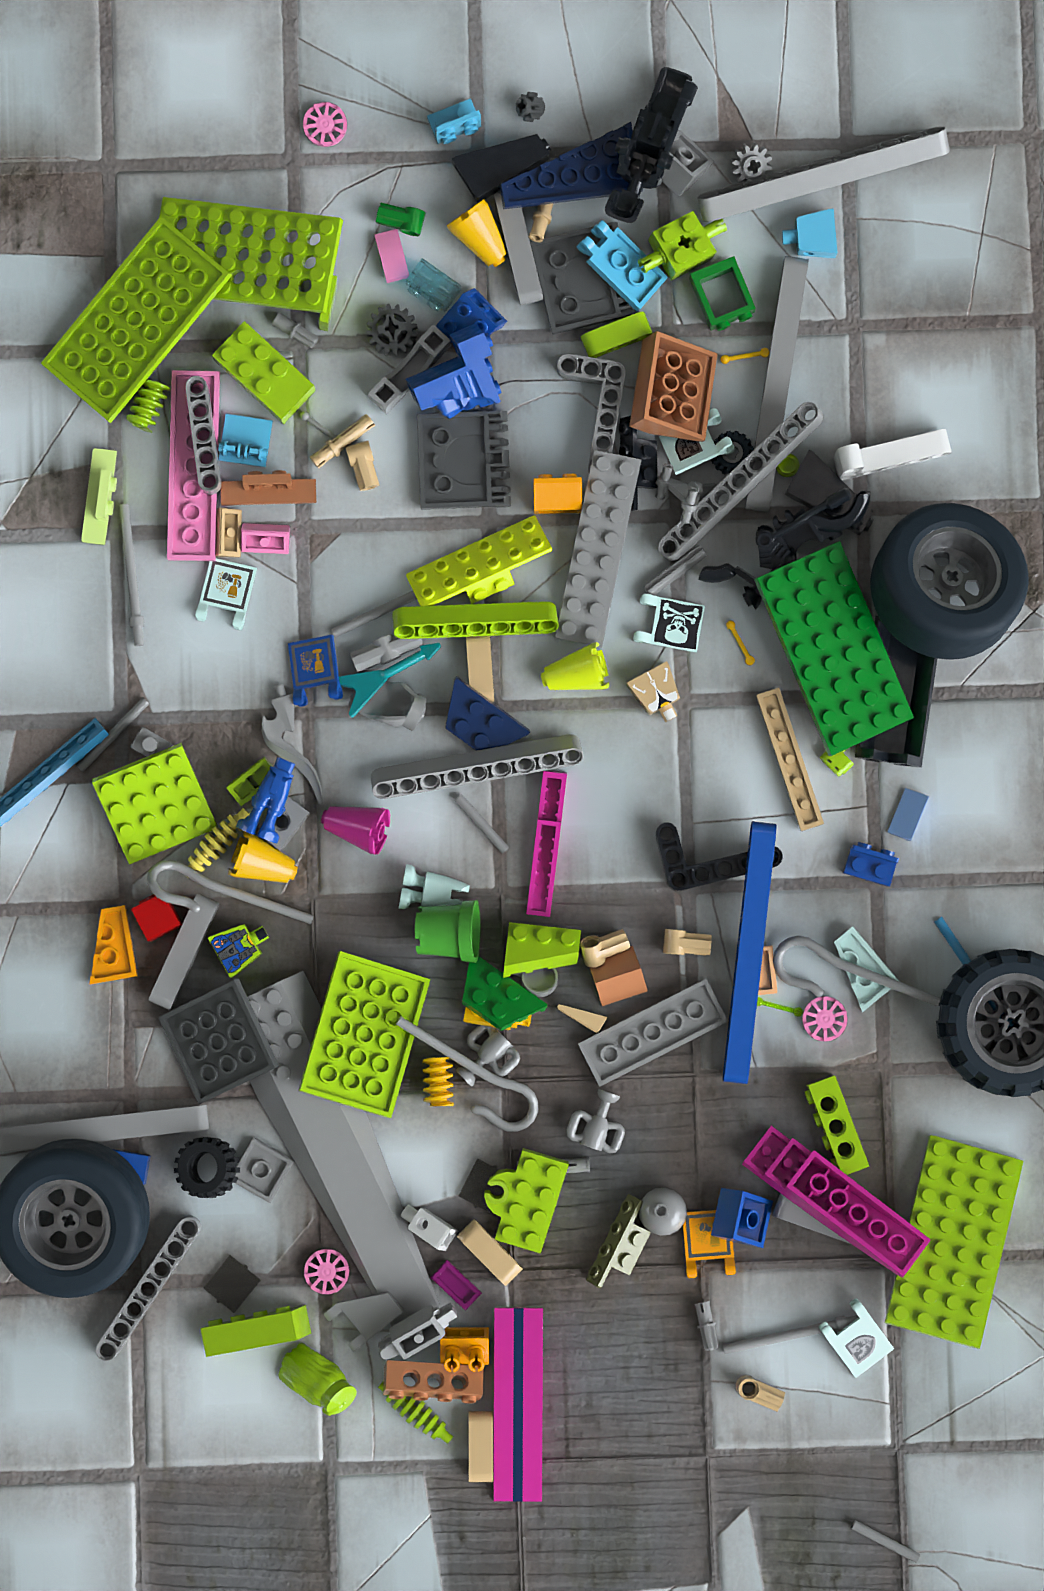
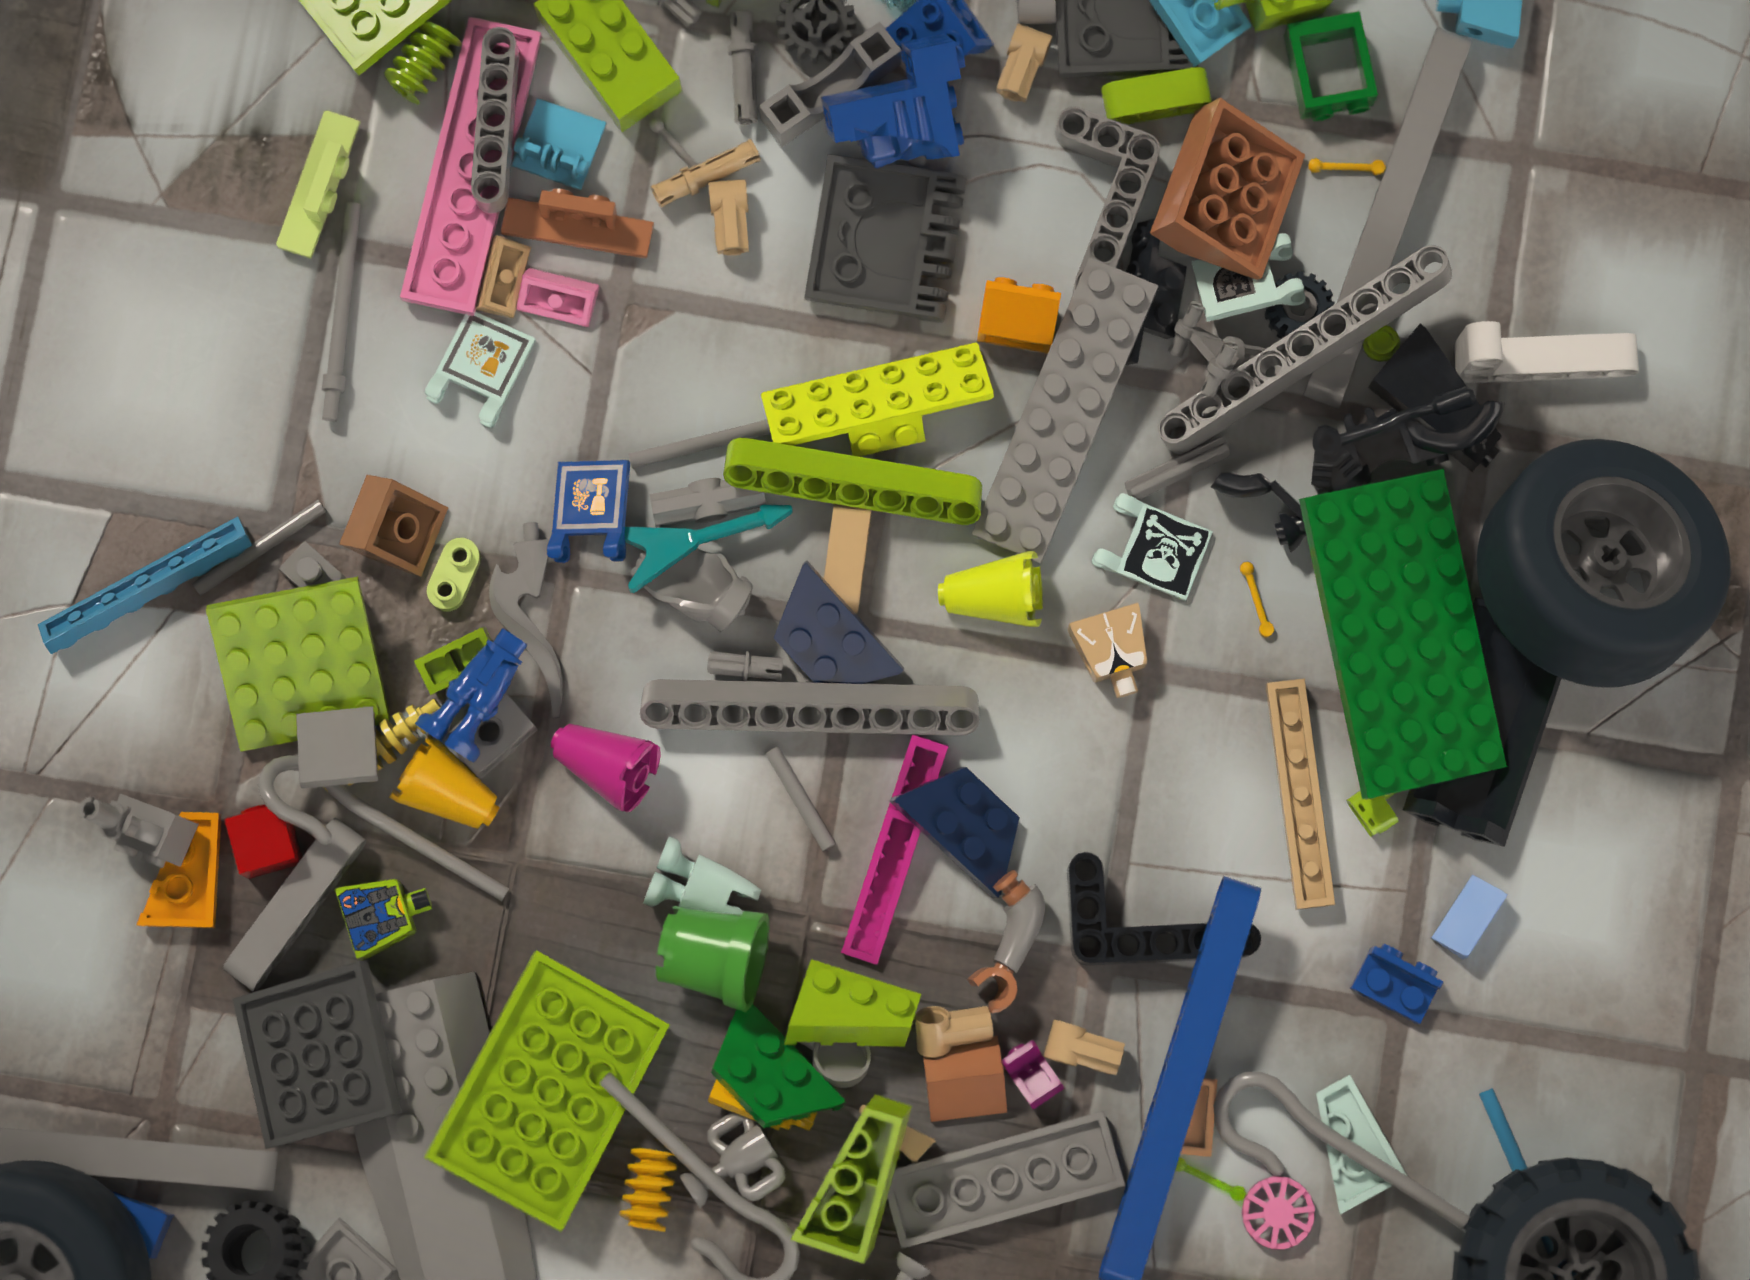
camera: 10 degrees right, 5 degrees down
(82, 924) = (141, 828): none -> light grey brick
(190, 850) = (337, 747): none -> light grey tile
(194, 704) = (393, 525): none -> medium nougat slope
(236, 726) = (457, 574): none -> yellowish green plate
(351, 366) = (744, 81): none -> light grey pin
(431, 748) = (745, 666): none -> light grey axle
(528, 325) = (1026, 55): none -> tan piece
(564, 1058) = (854, 1193): none -> lime wedge
(587, 820) = (964, 823): none -> dark blue wing
(634, 870) = (1024, 918): none -> piece
(658, 964) = (1032, 1074): none -> magenta bracket

